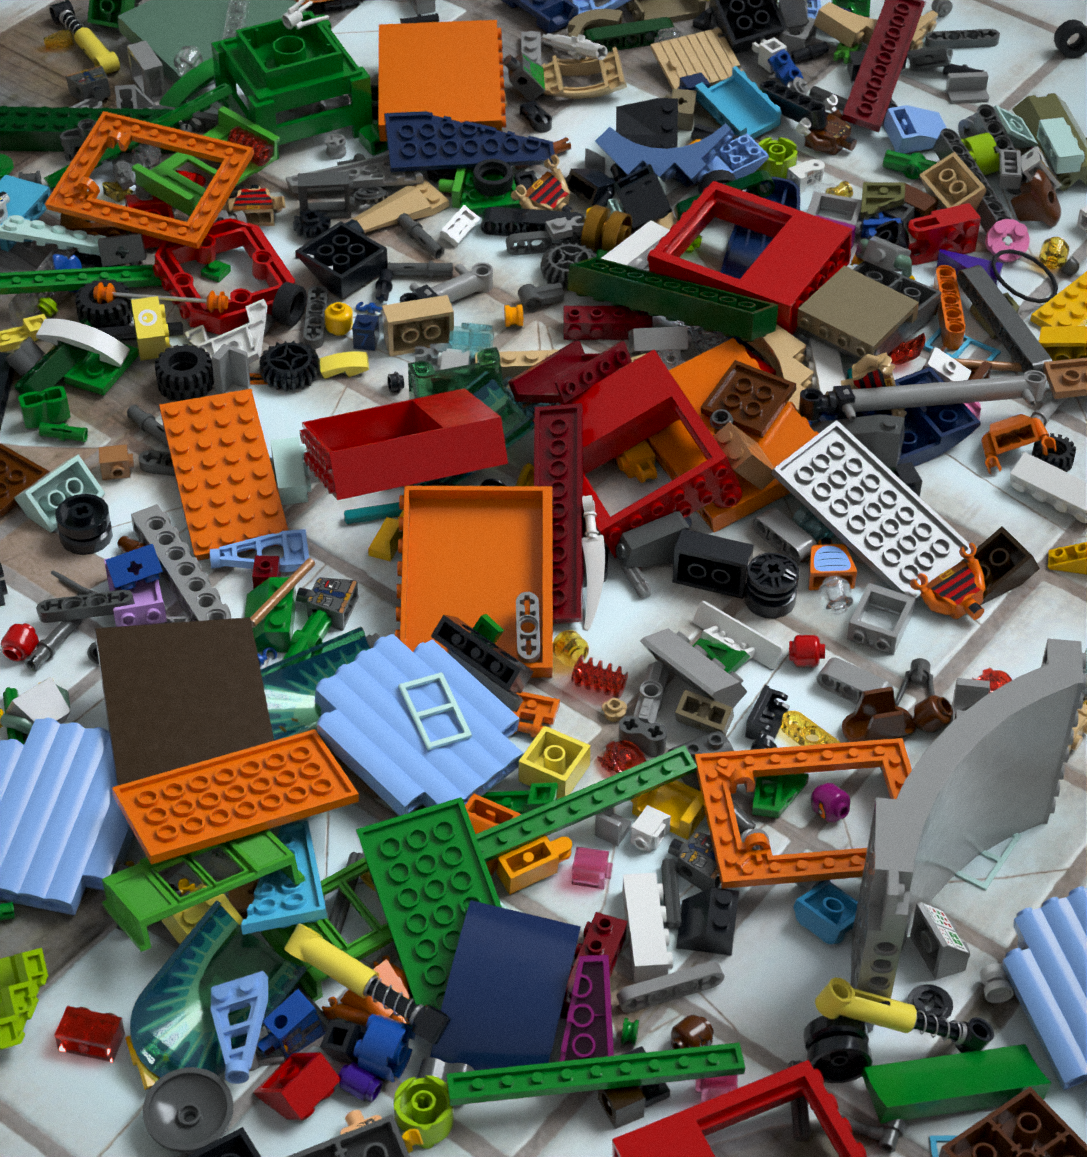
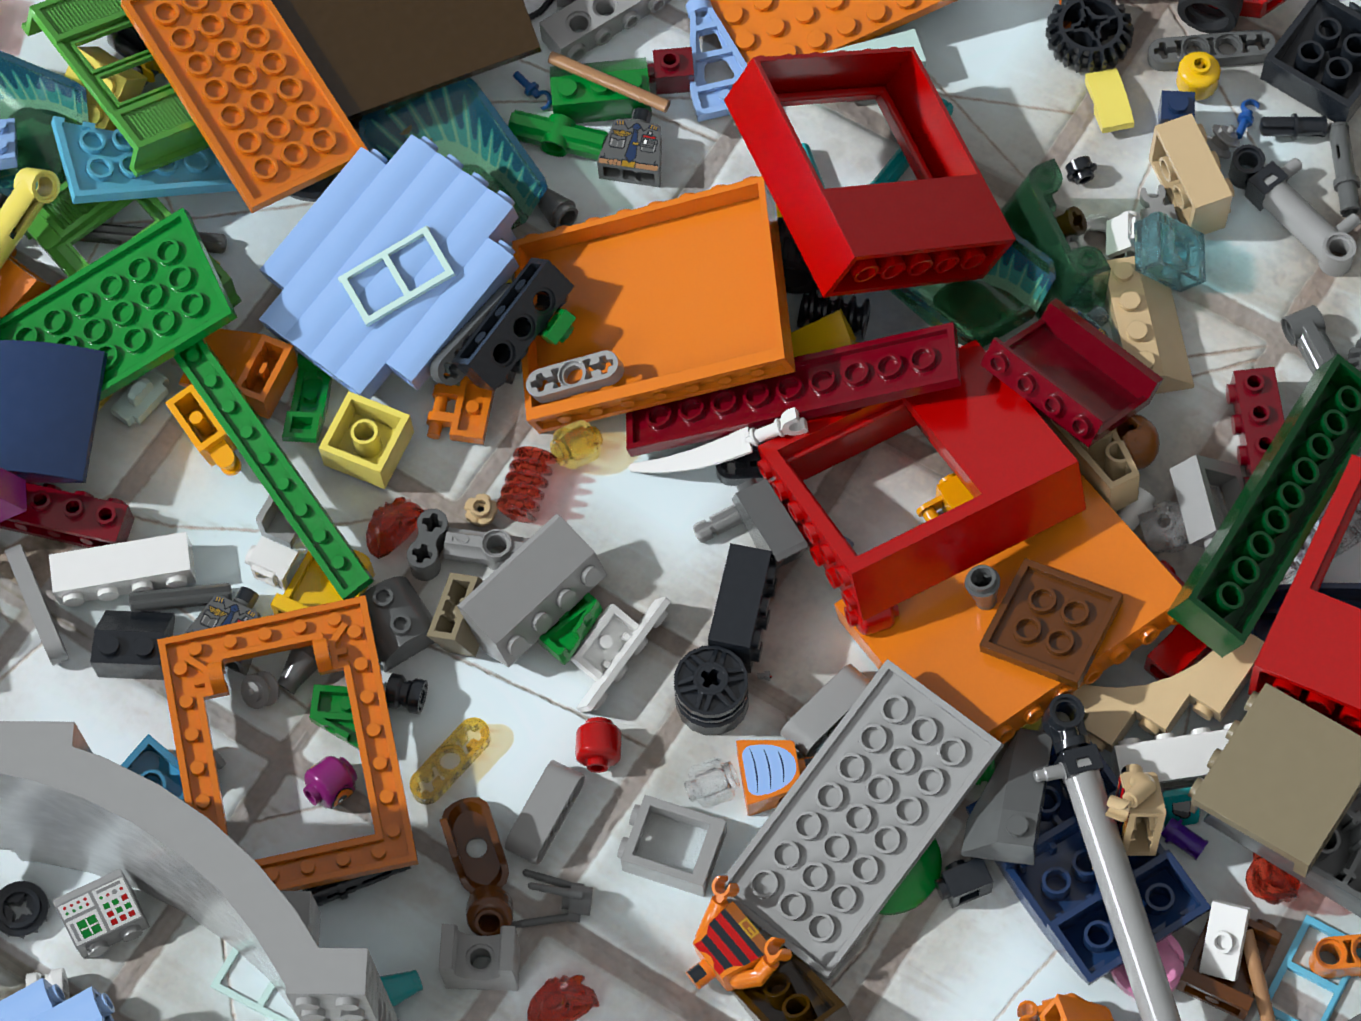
camera: 90 degrees right, 20 degrees up
(513, 315) = (1255, 306): light orange wheel -> none
(591, 868) = (210, 500): clear pink brick -> none
(745, 455) = (909, 617): medium nougat brick -> none
(767, 715) = (478, 696): black hinge -> none

